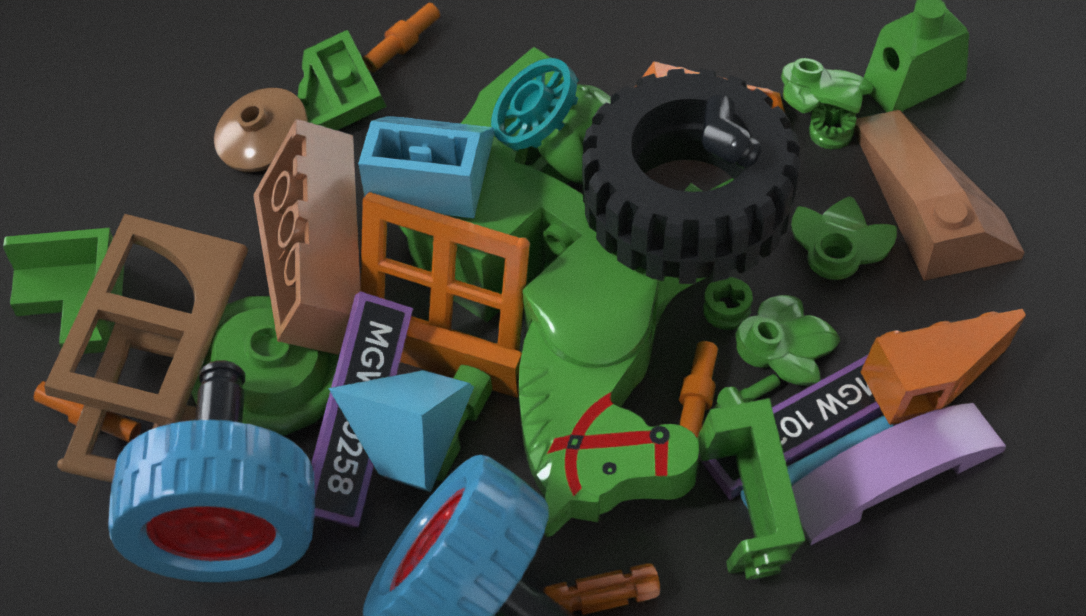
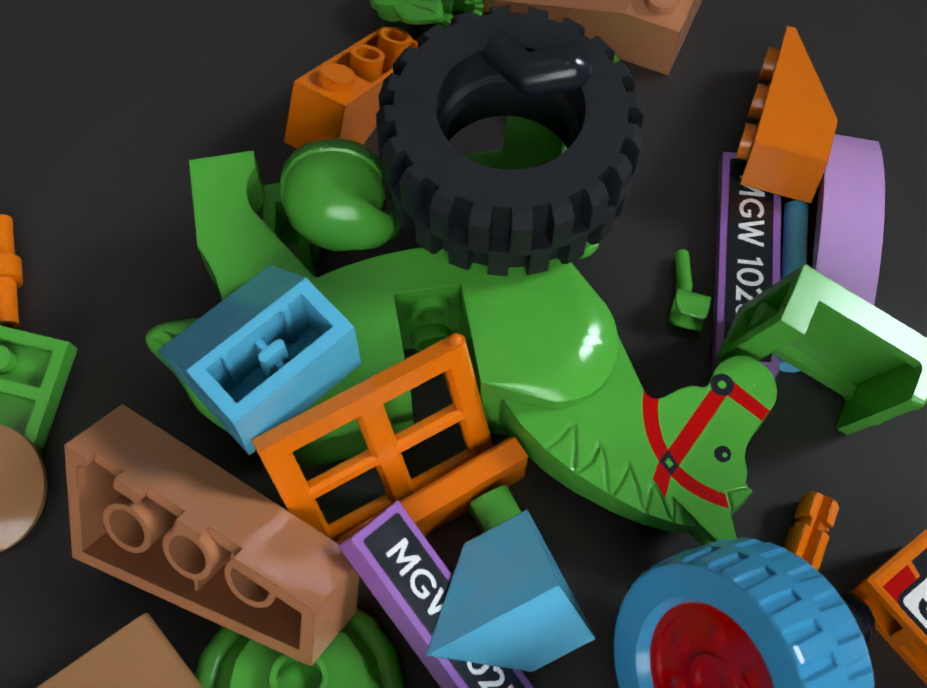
camera: 55 degrees left, 10 degrees up
(532, 103) = (287, 206): teal wheel -> none
(698, 387) = (652, 323): orange bar -> none
(786, 340) = (659, 218): bright green plate -> none

